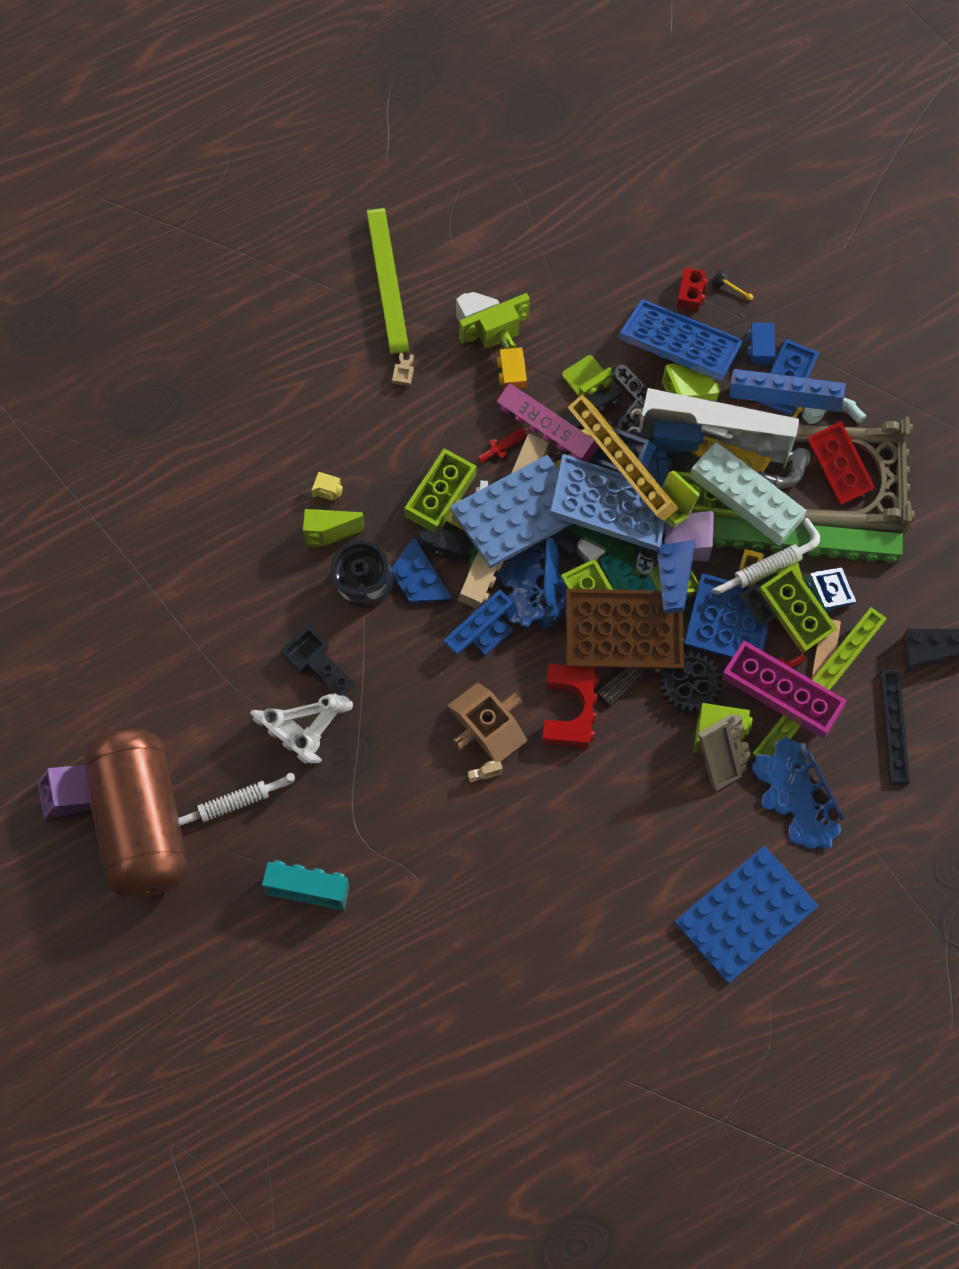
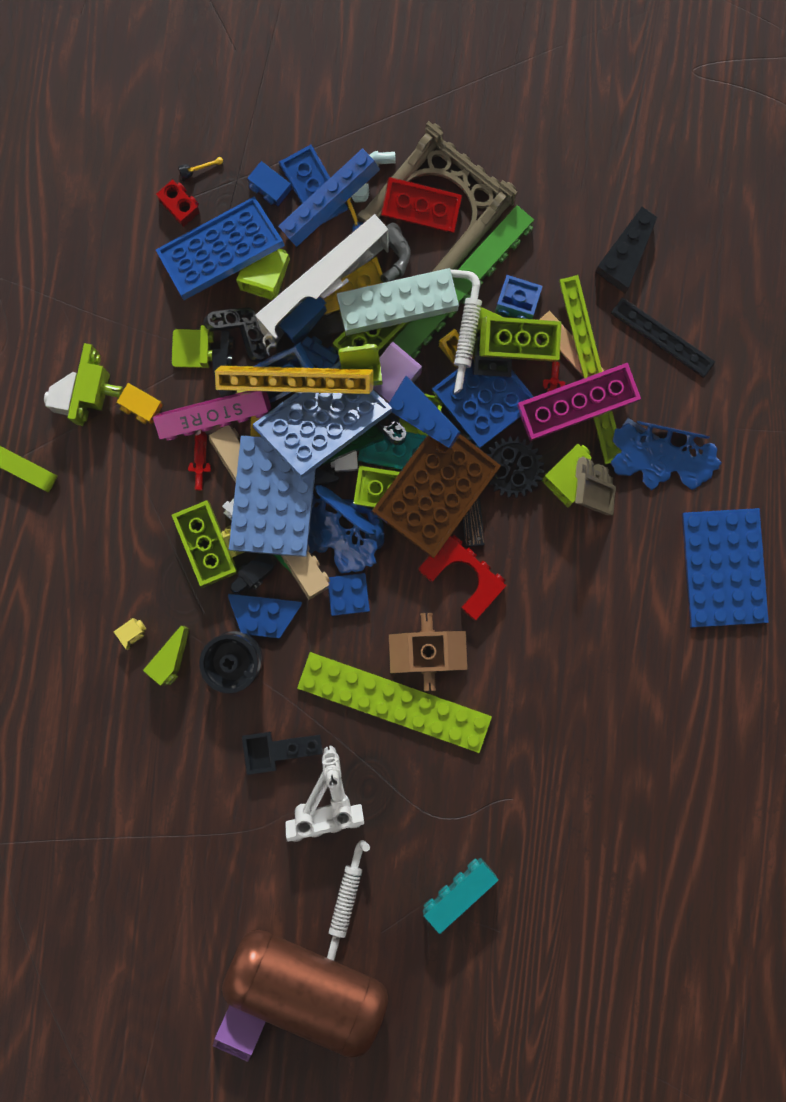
camera: 50 degrees left, 15 degrees up
(404, 372) = (73, 494): tan plate -> none
(426, 728) = (394, 702): none -> lime plate
(478, 622) = (342, 598): blue plate -> none
(487, 771) = (468, 679): tan plate -> none

